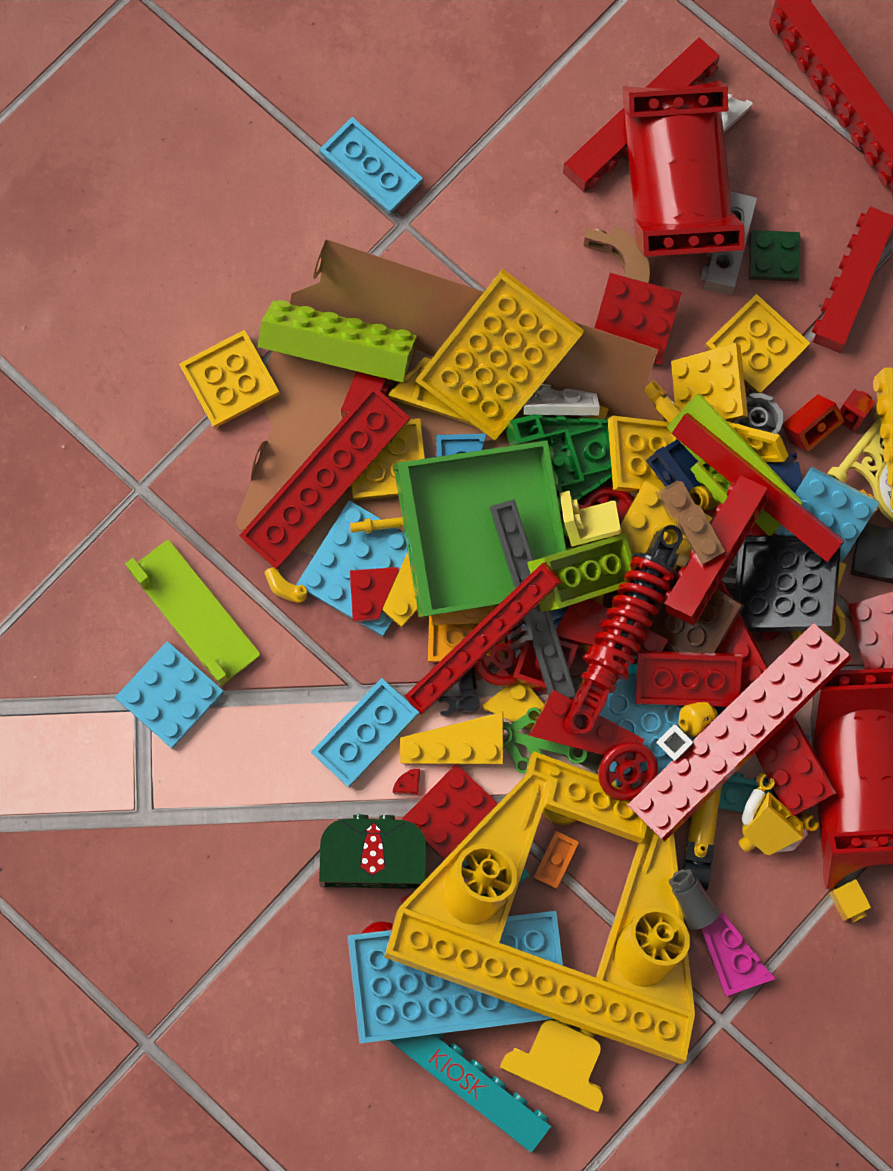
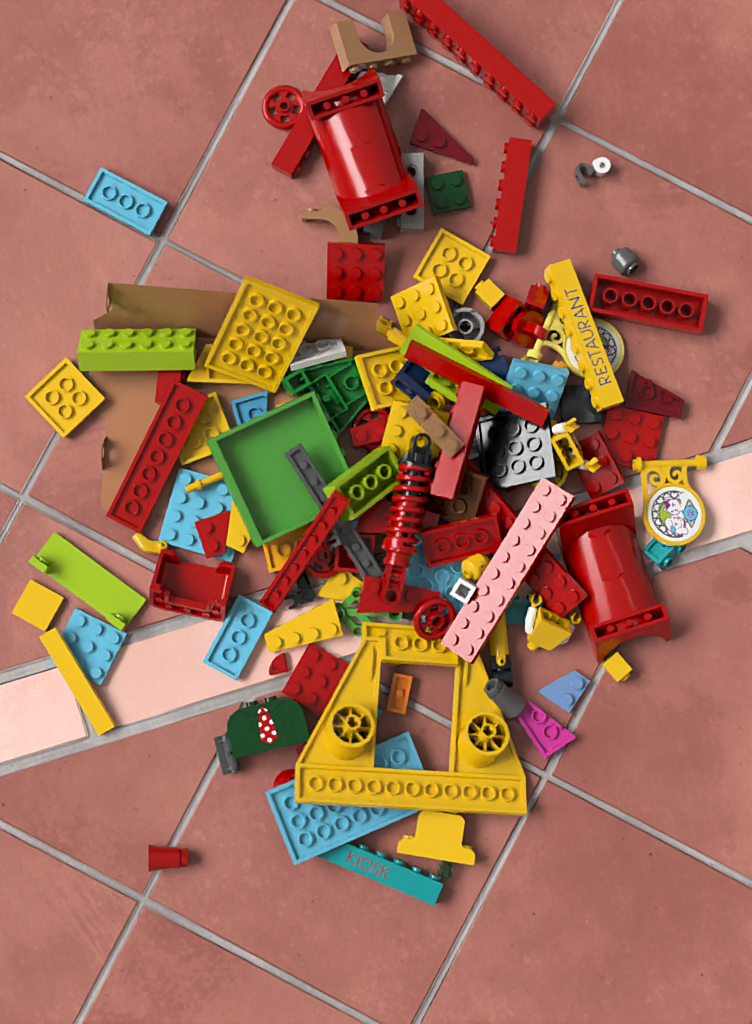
camera: 10 degrees left, 10 degrees up
(120, 626) = (38, 605): none -> yellow tile
(143, 733) = (77, 681): none -> yellow tile
(193, 994) = (166, 858): none -> red plant
(308, 887) = (224, 752): none -> dark grey hinge
(322, 654) = (191, 587): none -> red windscreen
(557, 1110) = (445, 870): none -> clear green plate
(578, 95) = (268, 103): none -> red plate
(590, 522) = (359, 443): light yellow bracket -> none
(675, 270) = (376, 229): none -> dark grey brick
(702, 63) = (355, 56): none -> medium nougat arch
(773, 187) = (434, 138): none -> dark red wing
(775, 914) = (566, 690): none -> medium blue wing
(796, 388) = (488, 293): none -> yellow brick
(837, 441) = (528, 328): none -> red tile
(855, 599) = (569, 447): none -> torso

